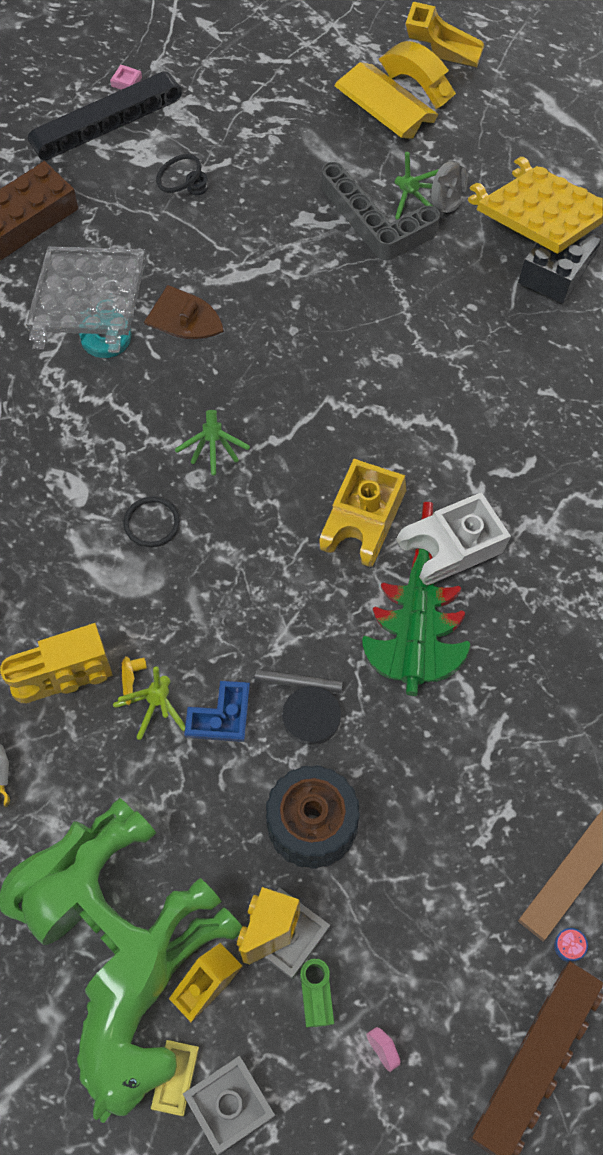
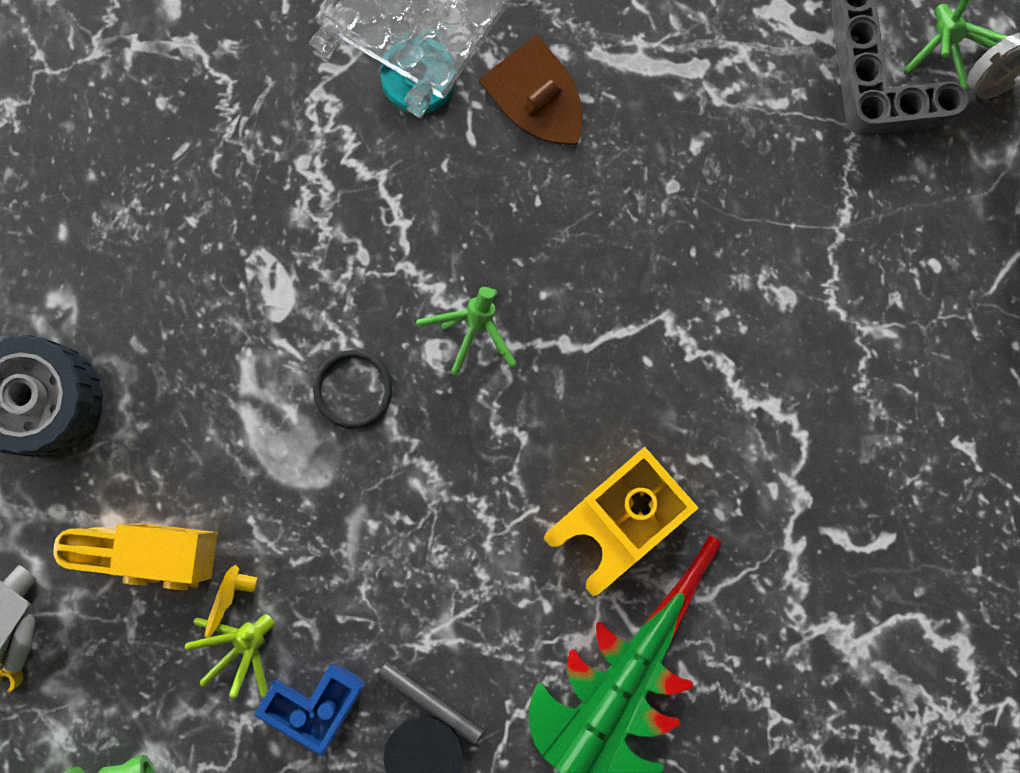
camera: 30 degrees right, 20 degrees up
(456, 537) = (711, 621): white brick -> none

